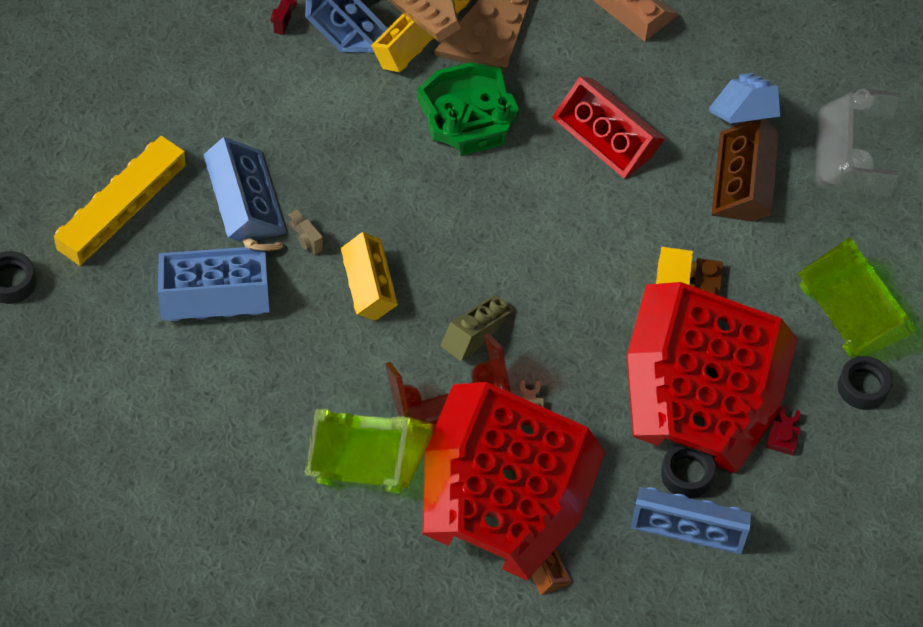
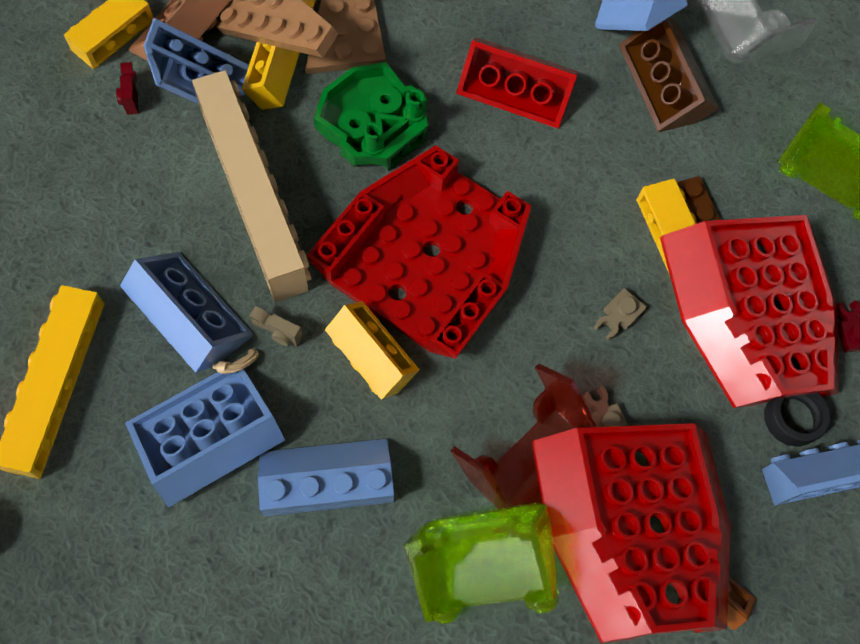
camera: 30 degrees left, 10 degrees up
(284, 353) = (325, 477): none -> medium blue slope
(340, 121) = (253, 186): none -> tan brick
(441, 191) = (382, 242): none -> red wedge
(468, 330) = (509, 355): olive slope -> none
(590, 336) = (621, 311): none -> dark tan plate

